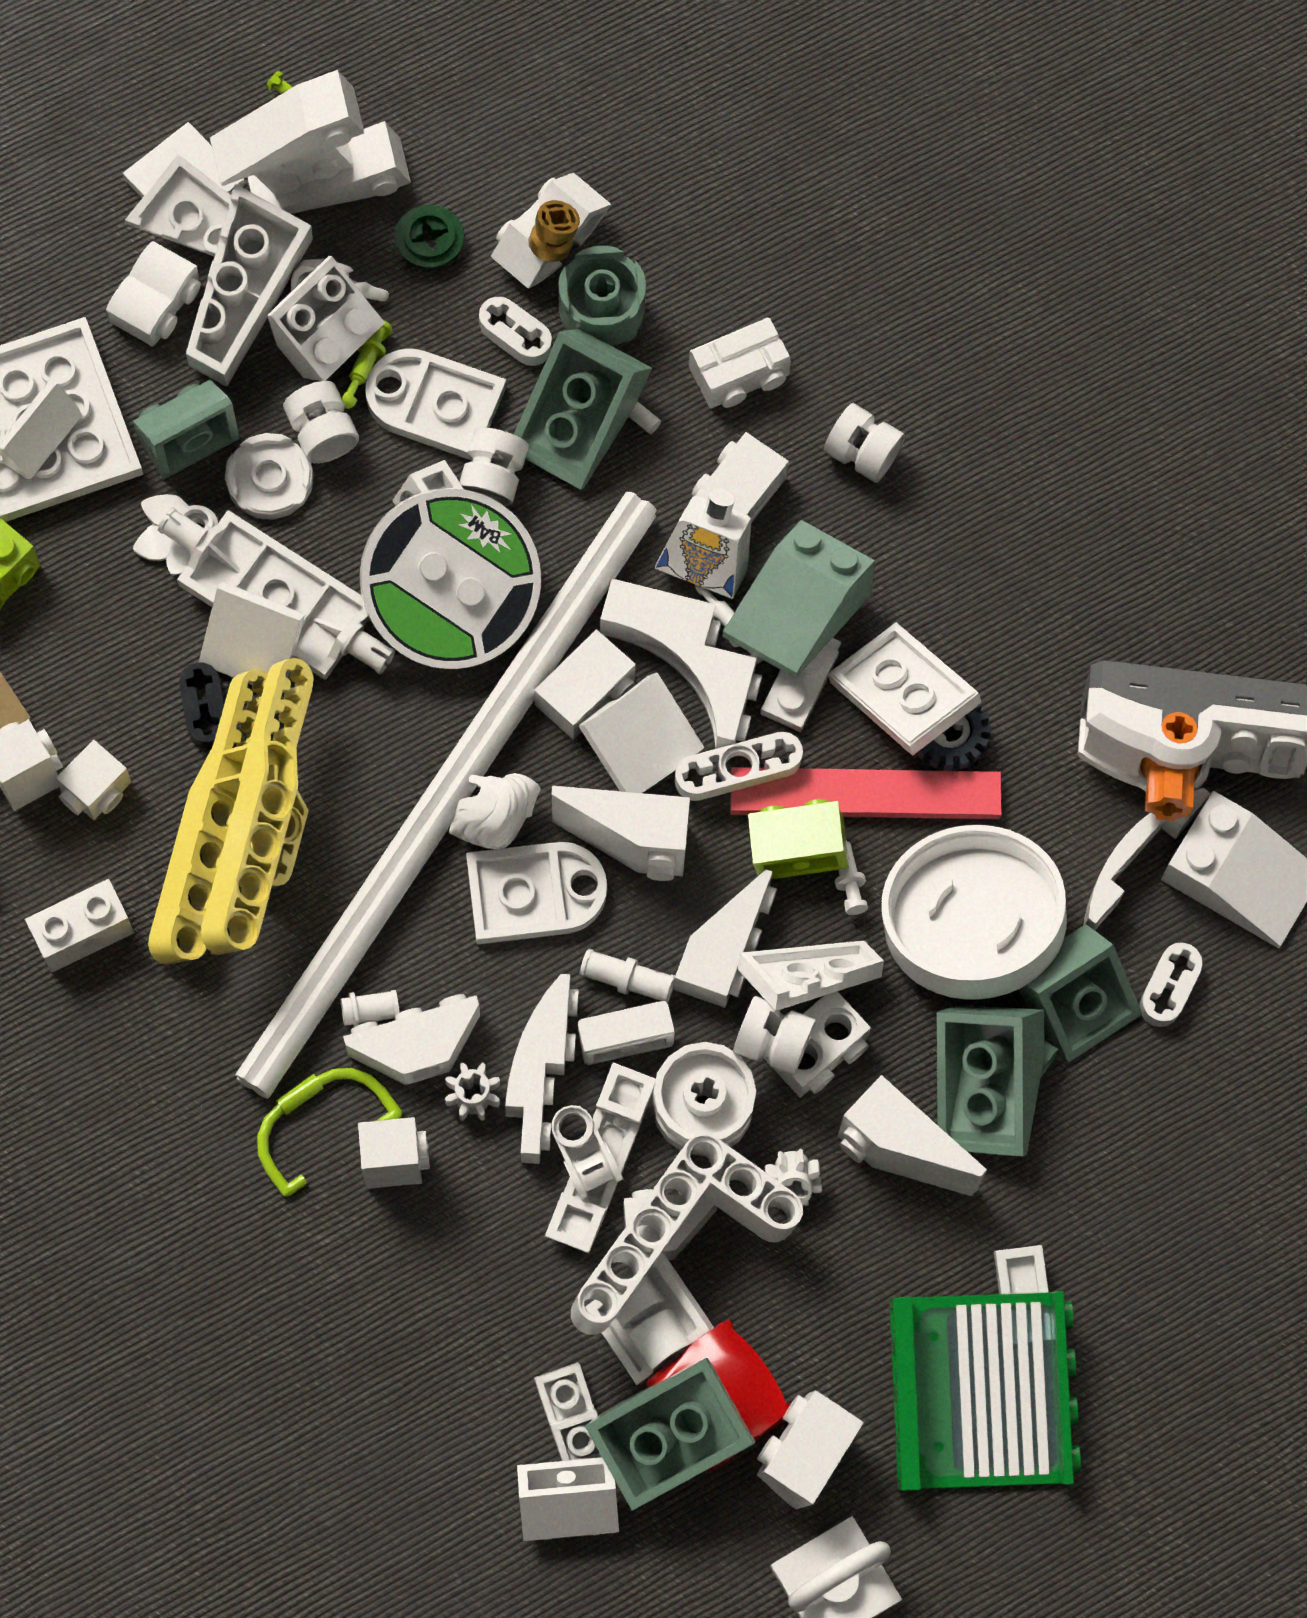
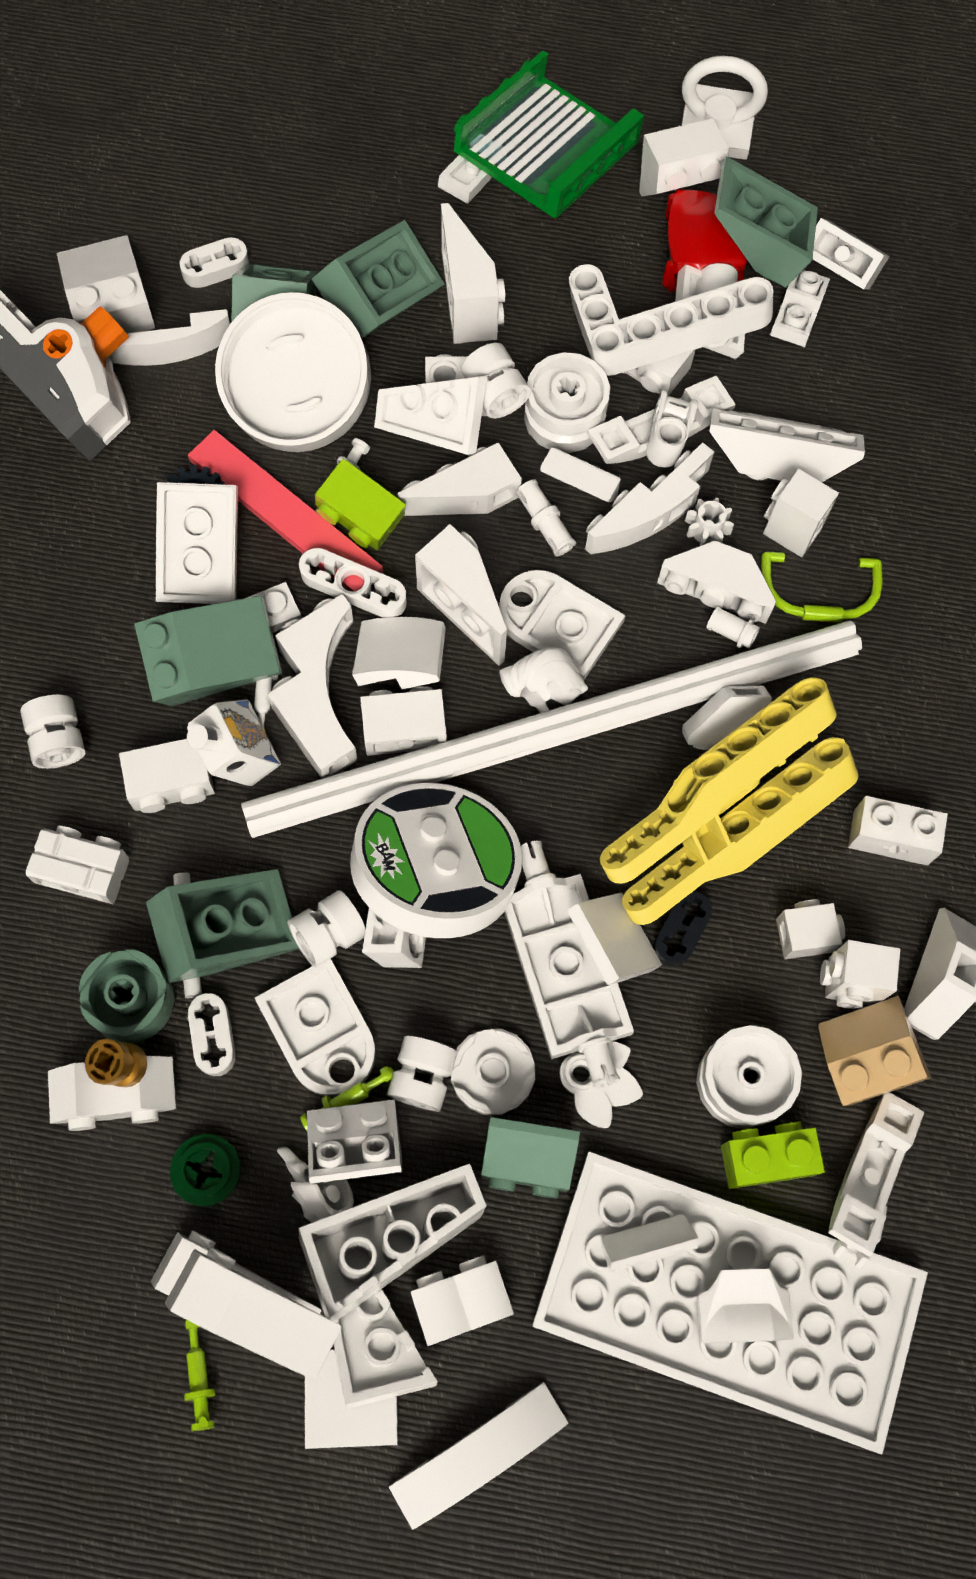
camera: 140 degrees left, 0 degrees up
(52, 215) = (478, 1456): none -> white slope
(55, 615) = (768, 1060): none -> white wheel
(304, 908) = (724, 714): none -> white slope
(467, 1227) = (778, 447): none -> white wedge
(797, 1174) = (551, 322): white gear -> none

